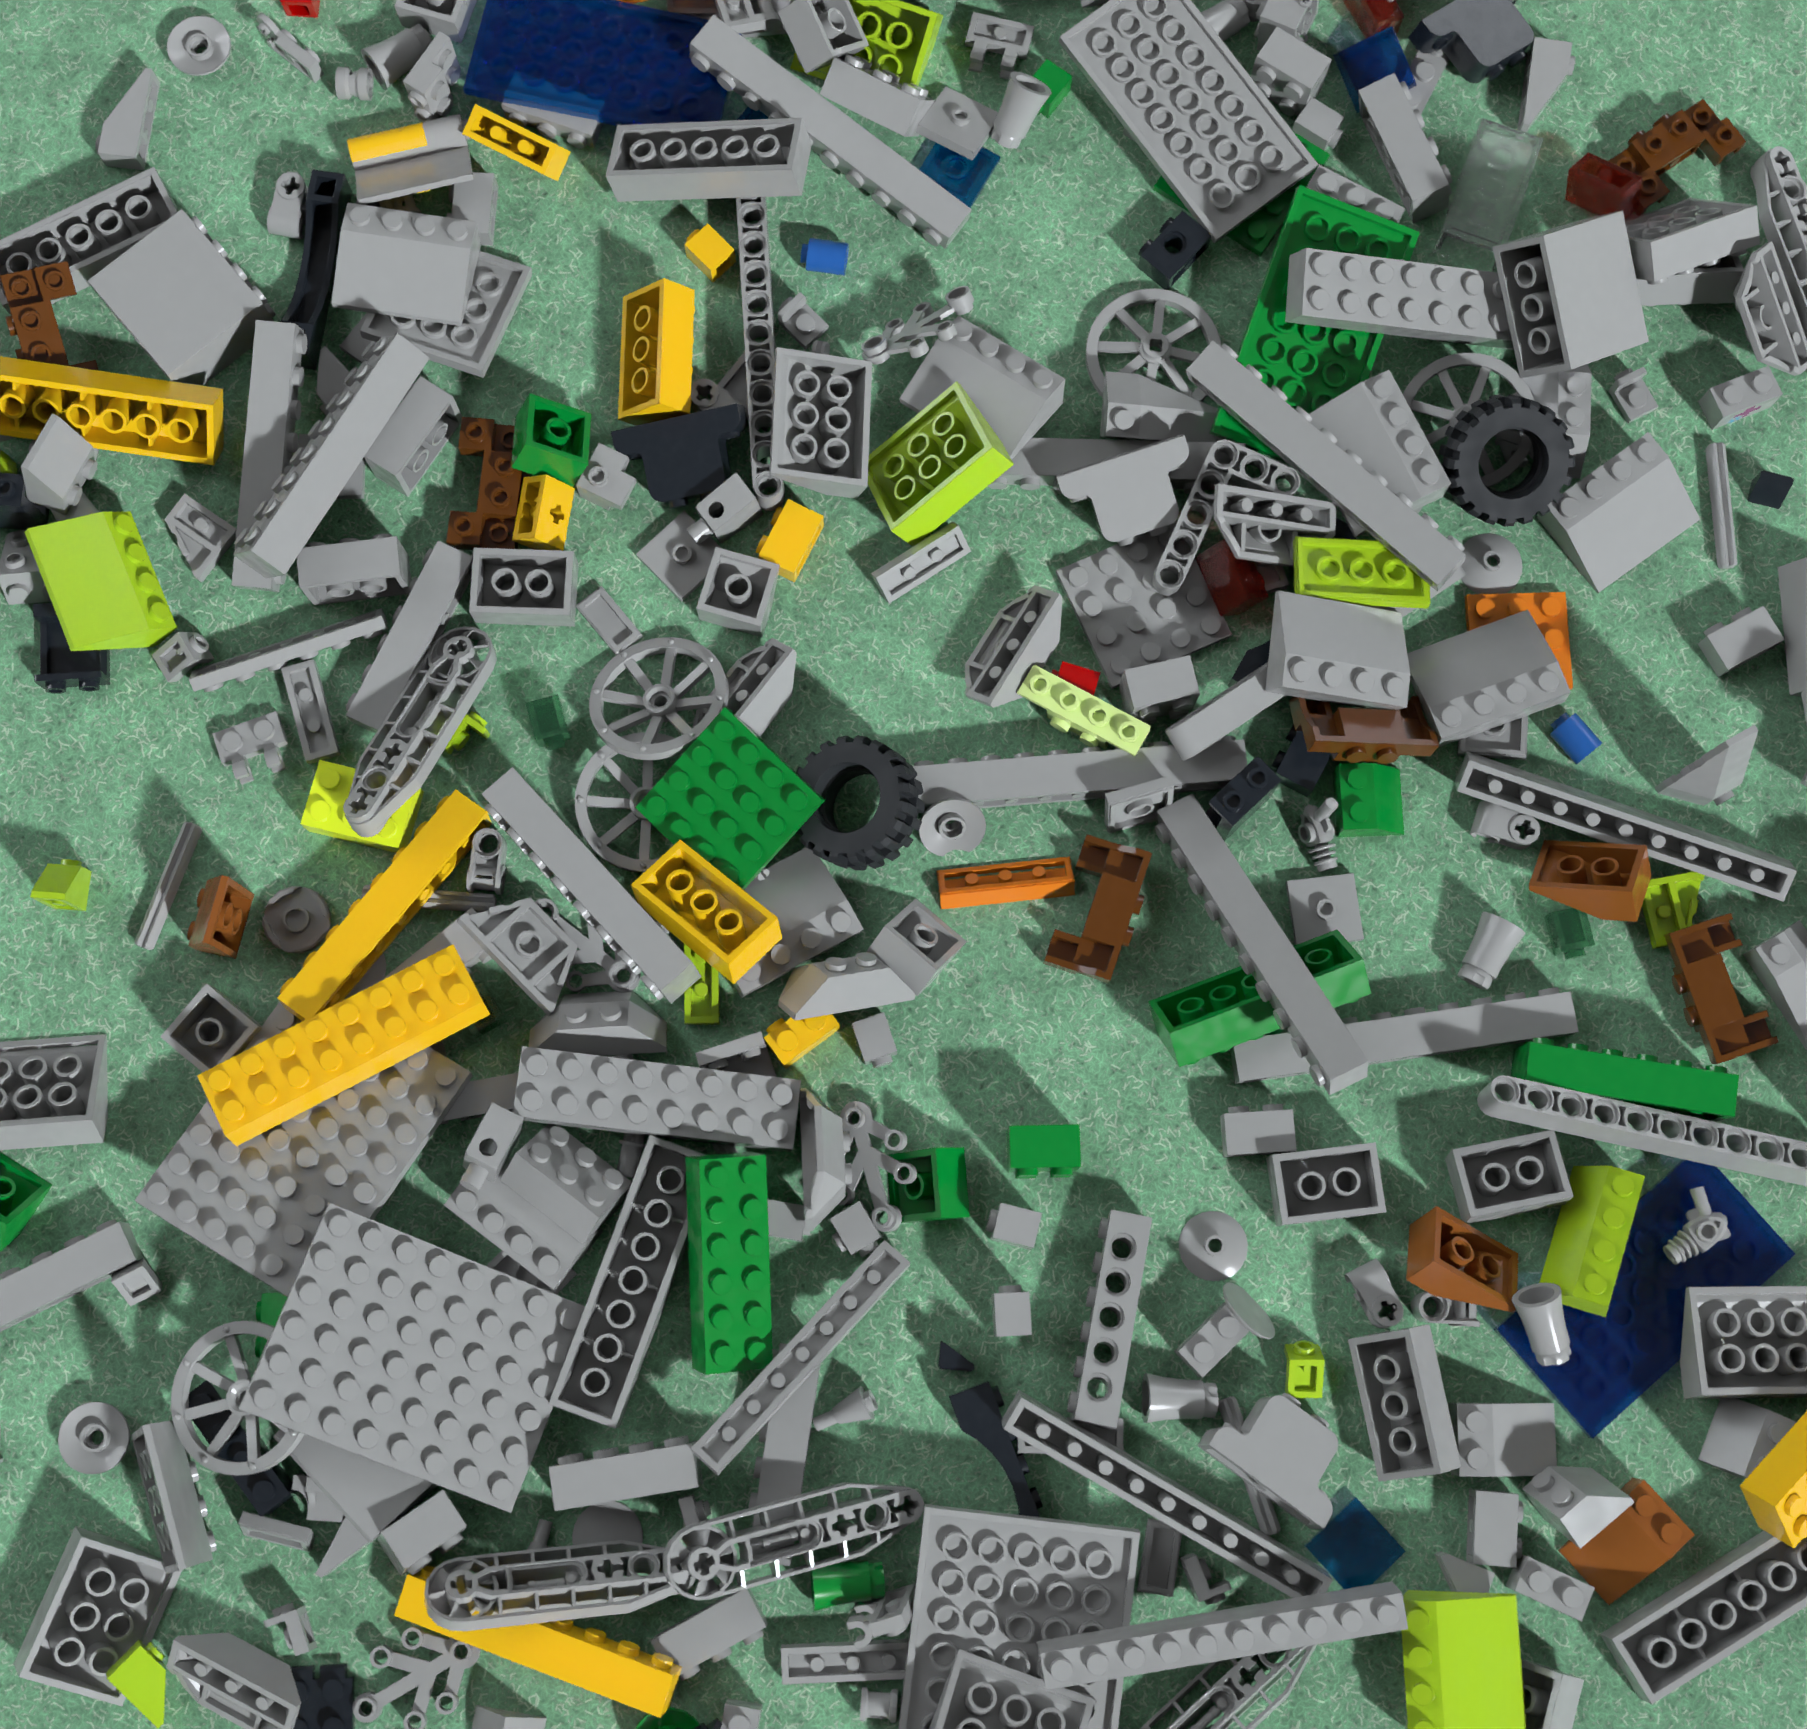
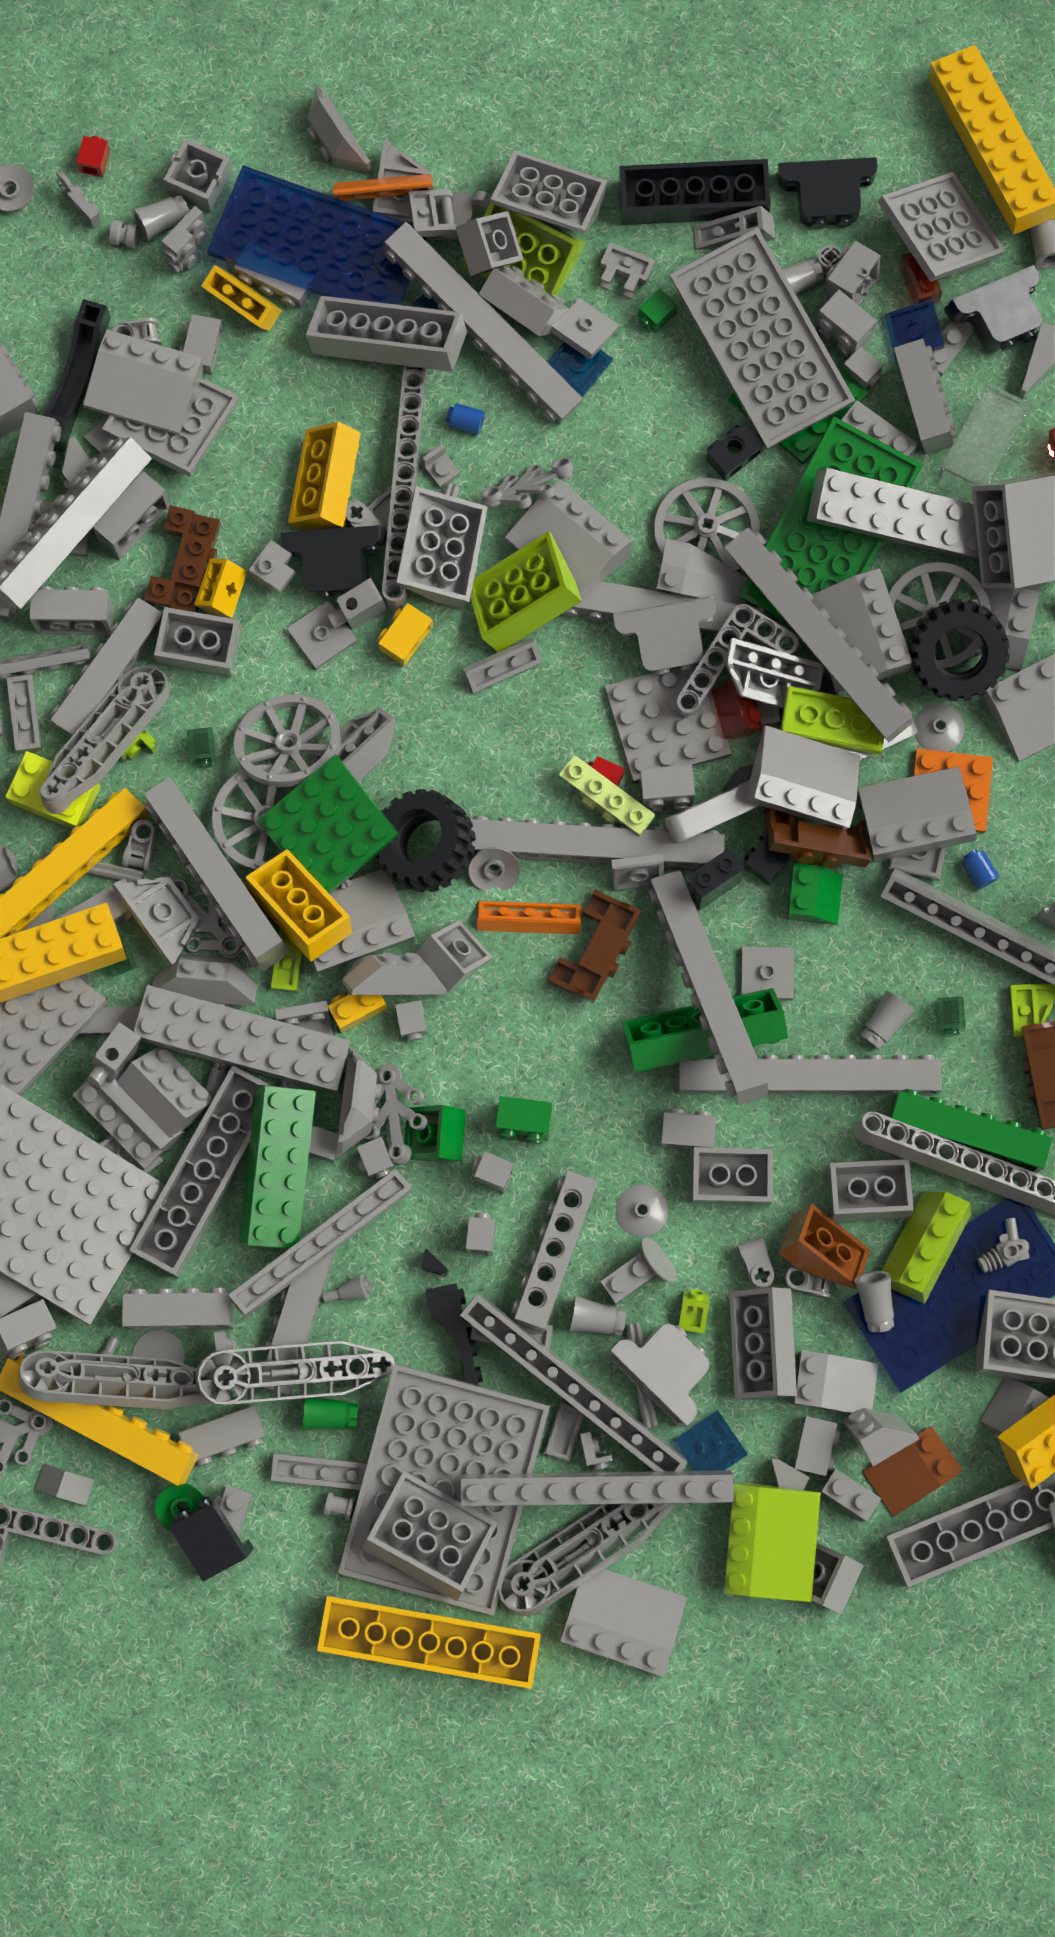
camera: 10 degrees right, 0 degrees up
(288, 210) = (59, 326): light grey piece -> none
(410, 159) = (159, 300): light grey door -> none
(551, 439) = (235, 532): green brick -> none
(609, 620) = (258, 676): light grey tile -> none
(709, 252) = (377, 403): yellow brick -> none
(738, 592) = (359, 668): light grey slope -> none
(887, 1615) = (353, 1440): light grey plate -> none
(1017, 639) = (566, 734): light grey wedge -> none
(1018, 109) = (632, 324): light grey plant -> none
(1317, 830) = (772, 912): light grey piece -> none
(1501, 826) = (910, 928): light grey piece -> none
(1594, 877) = (973, 976): dark orange slope -> none

